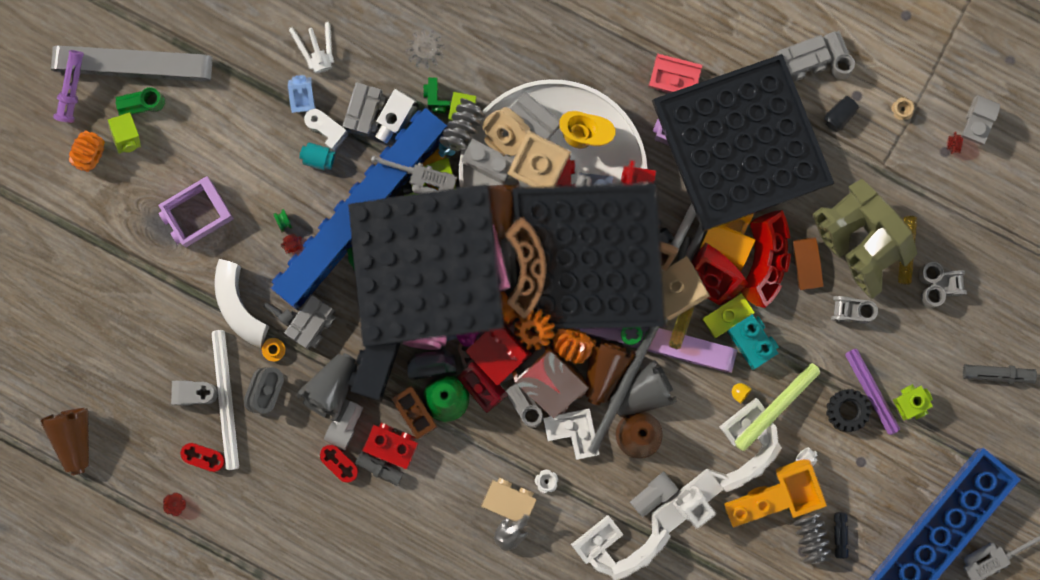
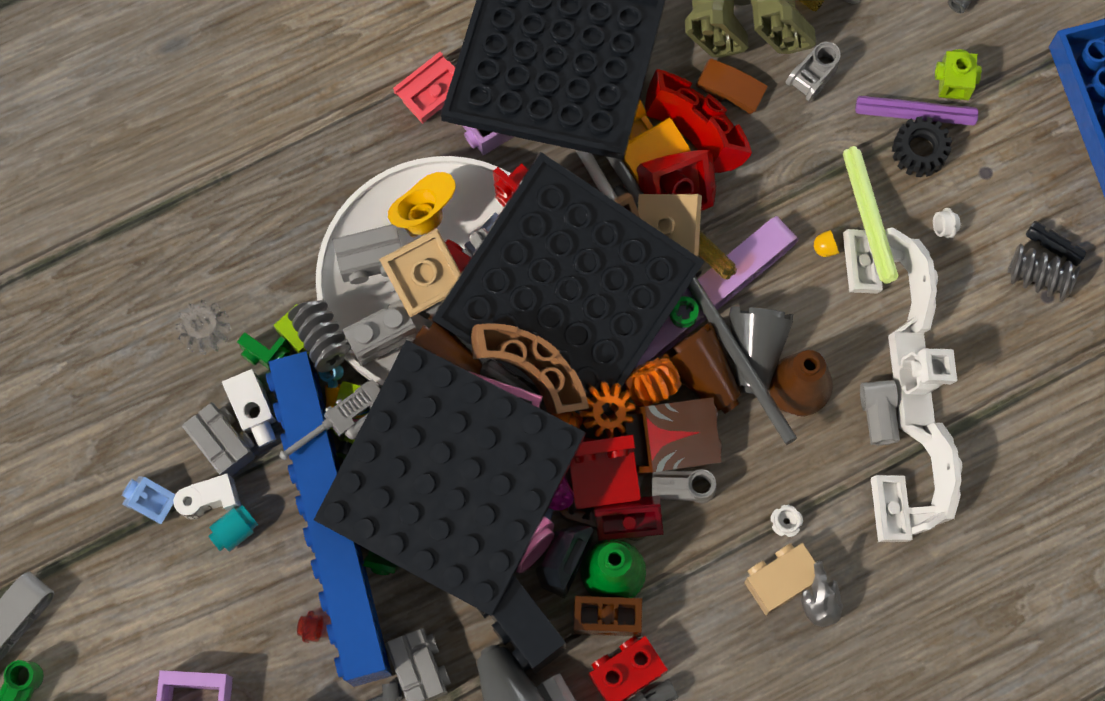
camera: 50 degrees left, 10 degrees down
(283, 220) = (276, 619): green bush -> none
(320, 61) = (127, 451): white plant -> none
(512, 123) = (356, 274): tan plate -> none
(575, 425) = (746, 444): white plate -> none
(728, 316) = (731, 203): neon yellow plate -> none
(753, 341) = (779, 194): teal brick -> none
(796, 491) = (980, 254): light orange plate -> none

